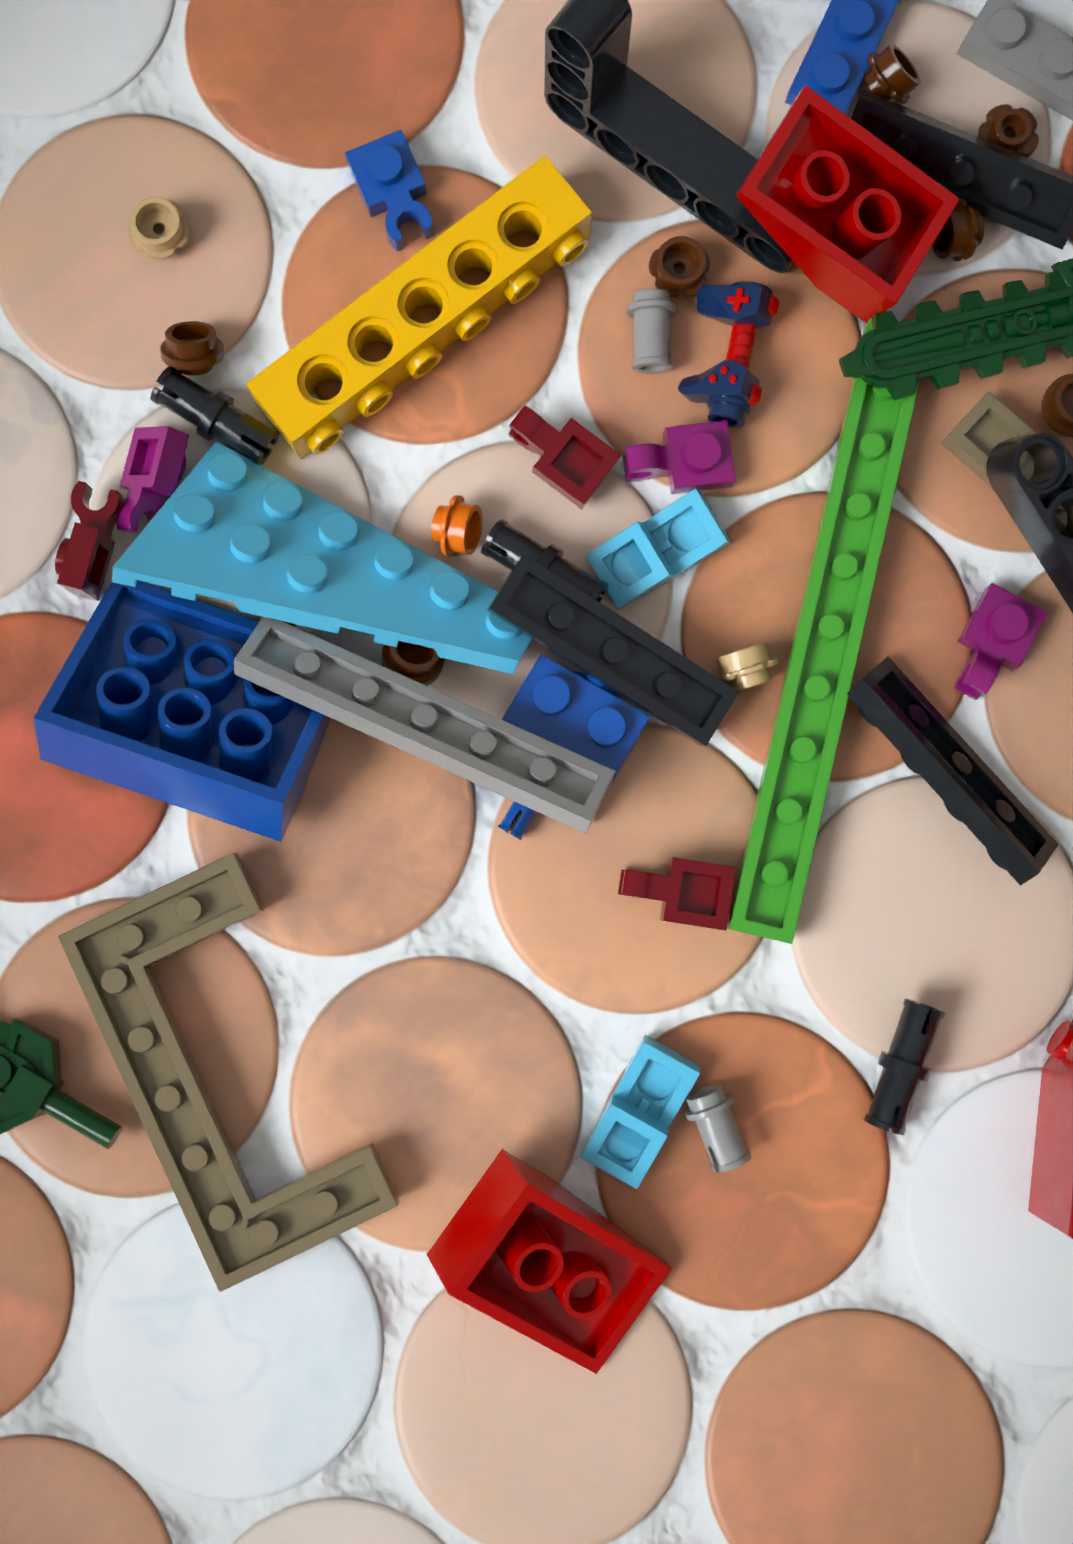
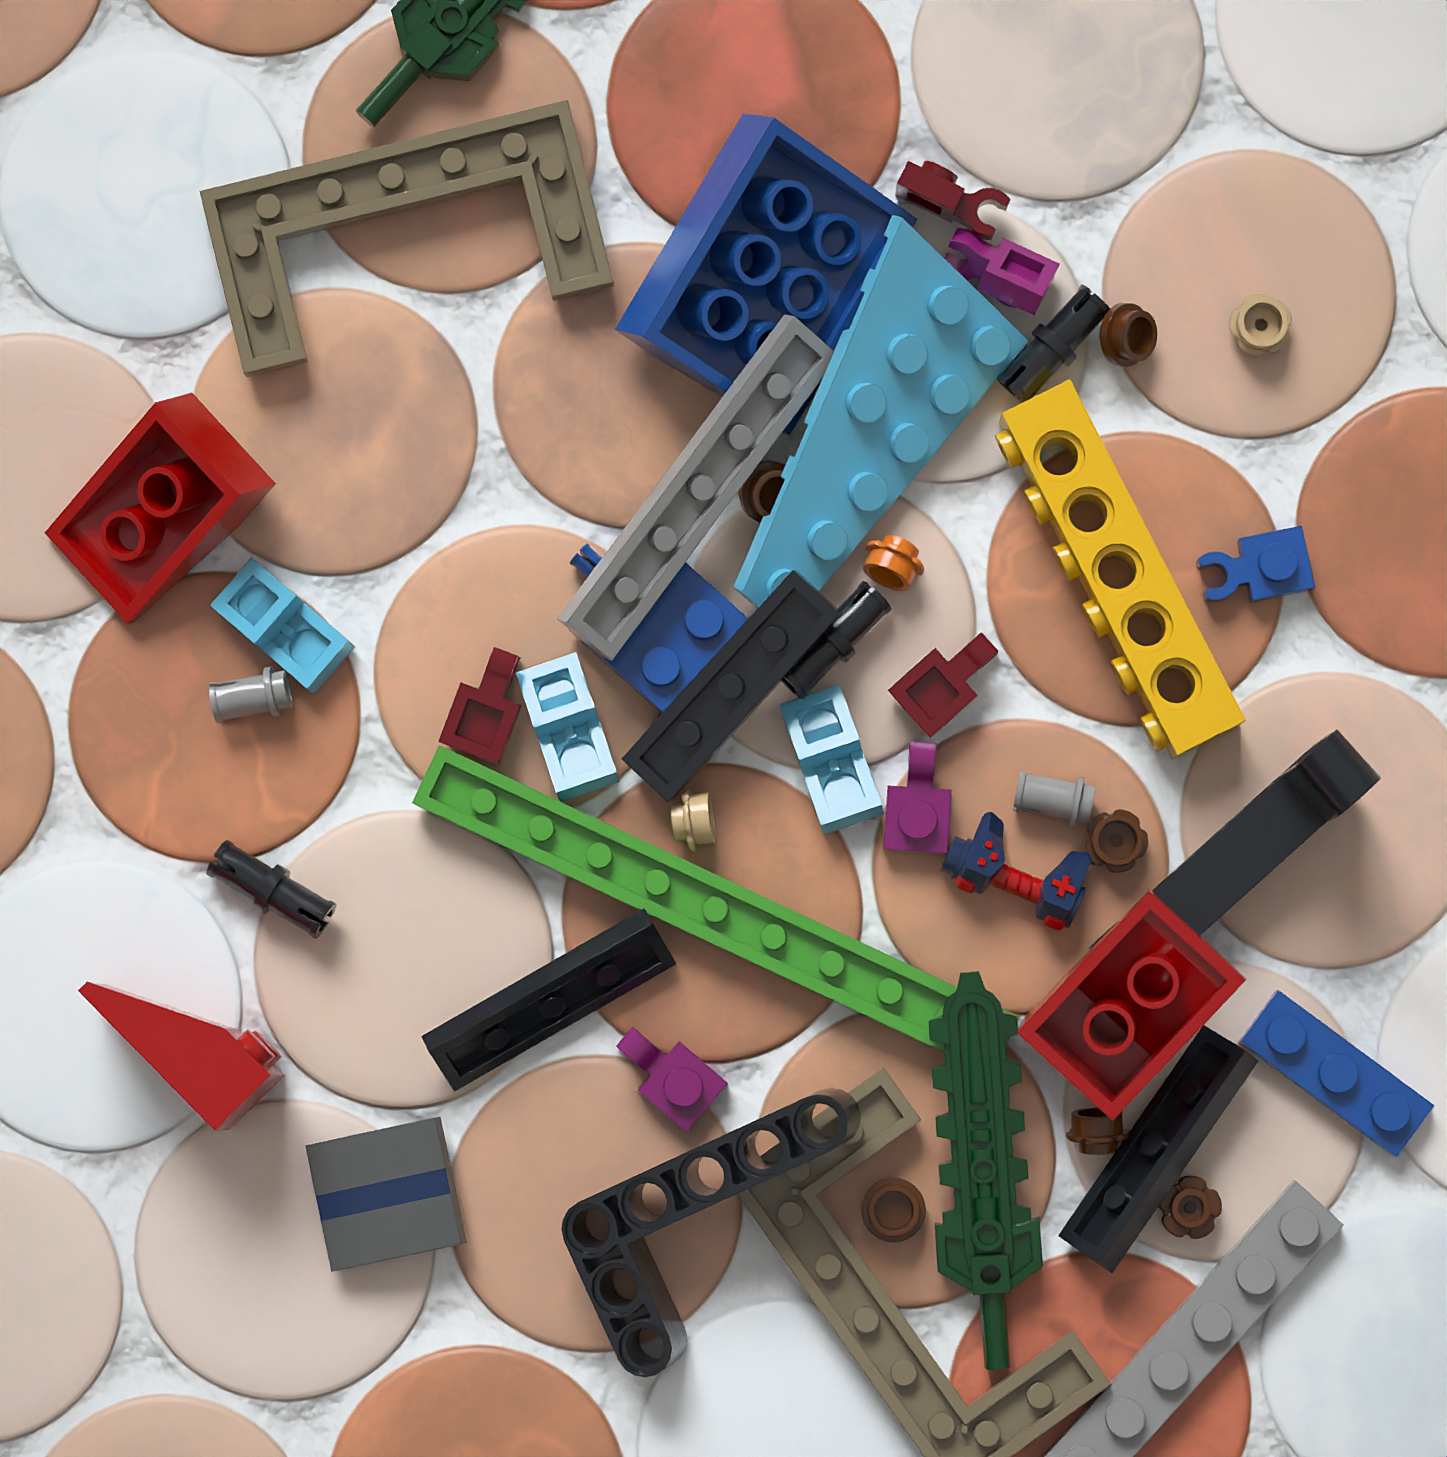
camera: 110 degrees right, 0 degrees up
(681, 808) = (567, 727): none -> slope
(892, 74) = (1273, 1100): reddish brown plate -> none

